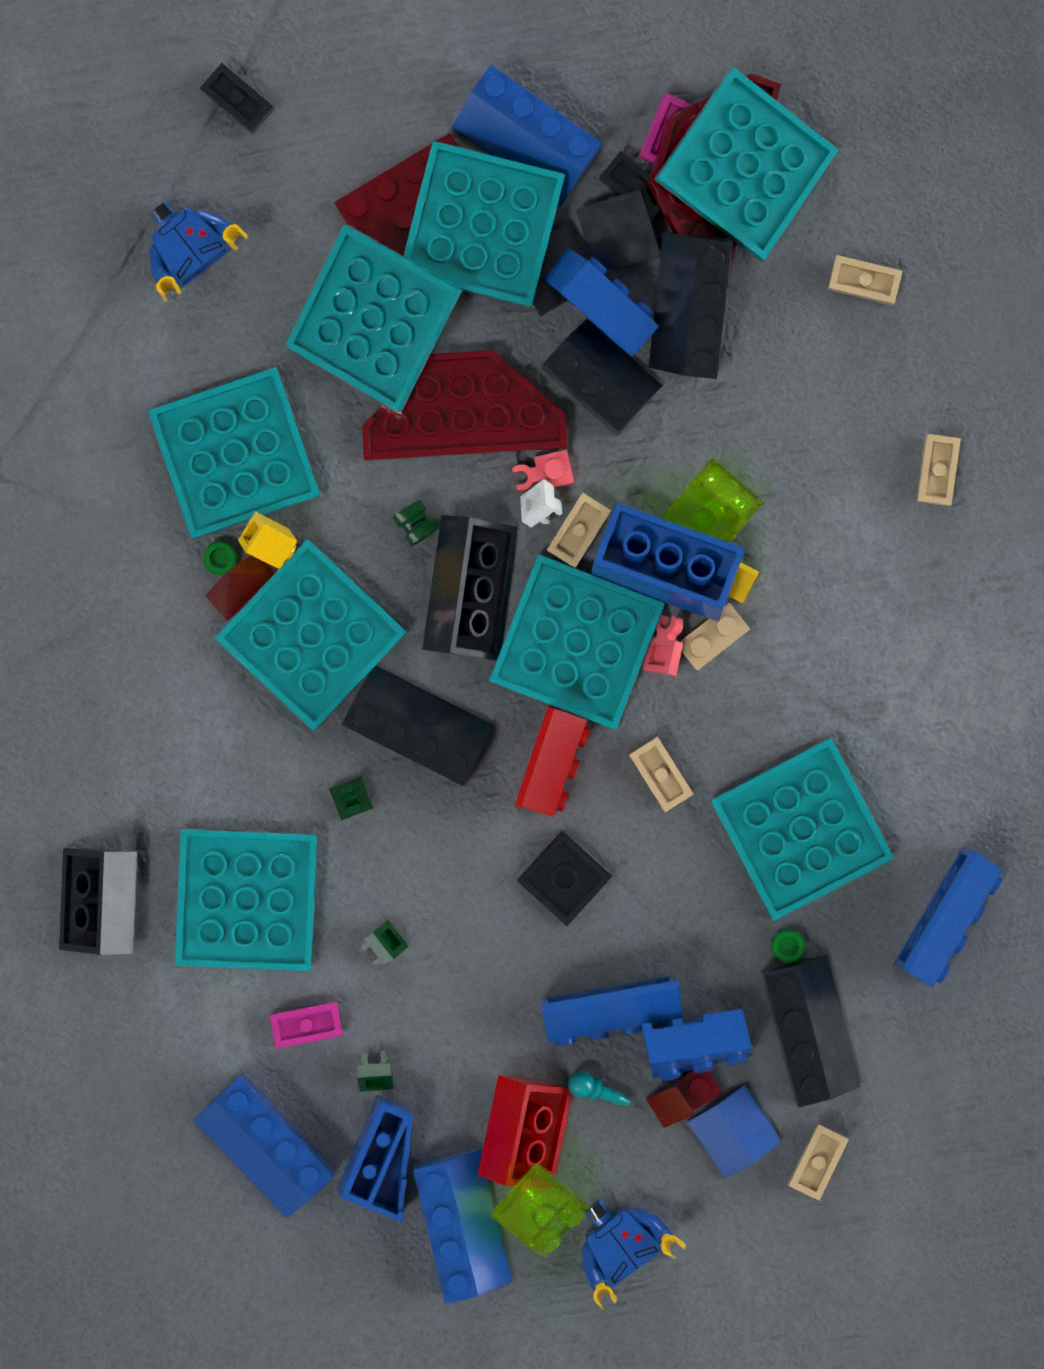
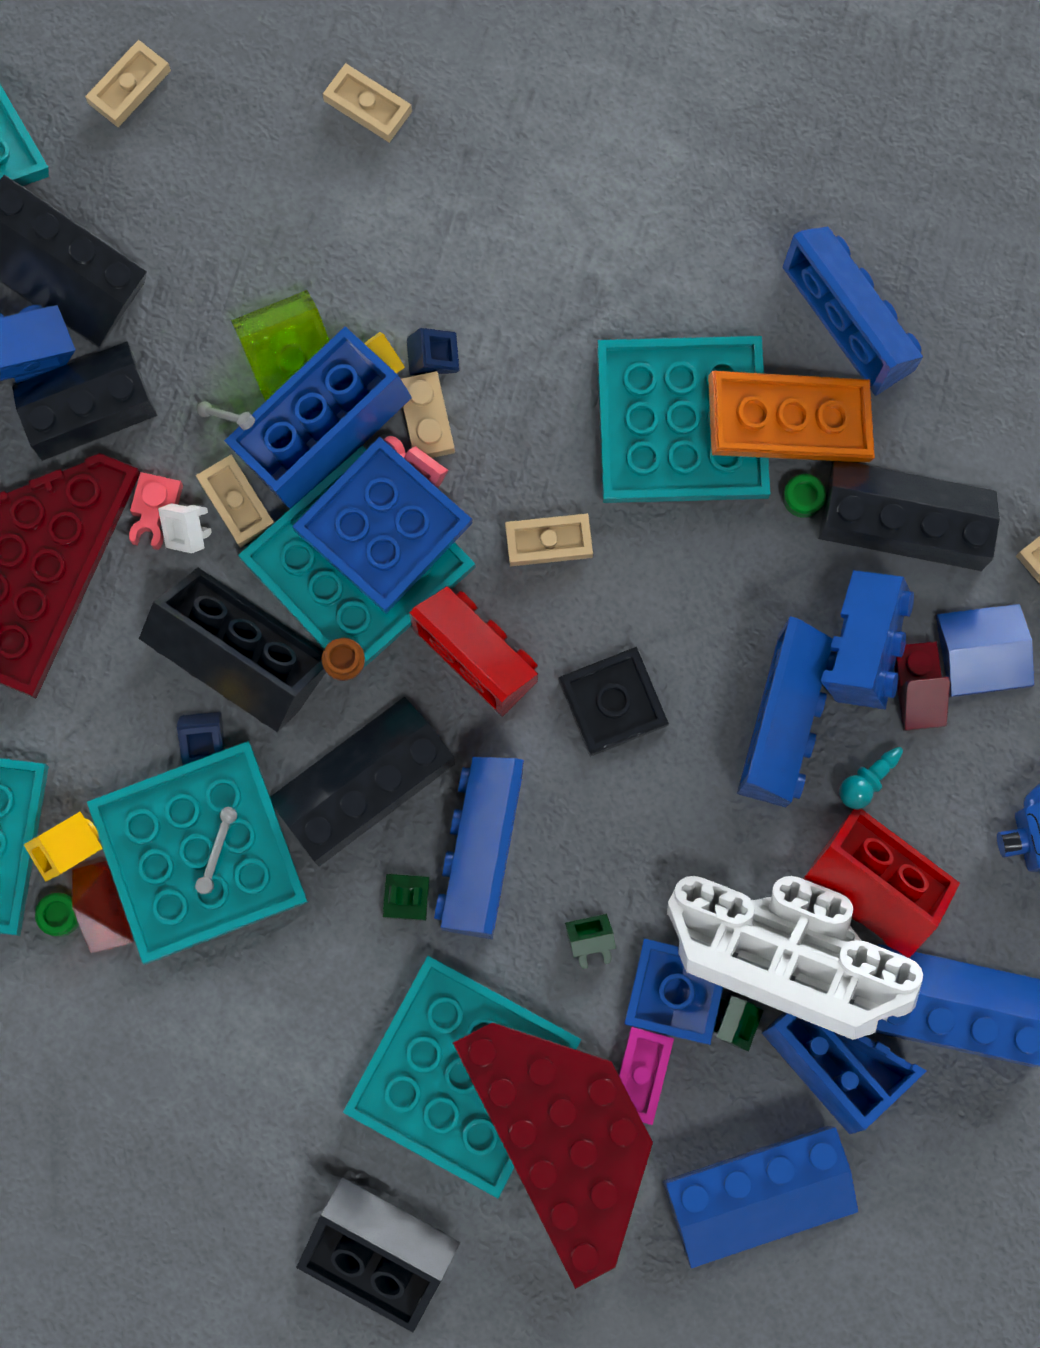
camera: 65 degrees left, 10 degrees down
(239, 992) = (567, 1137): none -> dark red plate
(290, 654) = (204, 884): none -> light grey hinge
(376, 1022) = (669, 998): none -> blue slope
(394, 593) = (200, 736): none -> dark blue slope
(409, 837) = (481, 846): none -> blue slope
(411, 516) = (133, 673): dark green wheel -> none
(447, 1086) = (794, 933): none -> white connector
(497, 671) = (343, 659): none -> dark orange plate
(540, 1210) = (983, 903): clear neon green slope -> none
(609, 650) = (382, 525): none -> blue plate
(637, 510) = (244, 420): none -> light grey hinge
(764, 617) = (432, 351): none -> dark blue slope
(840, 909) = (790, 416): none -> orange tile

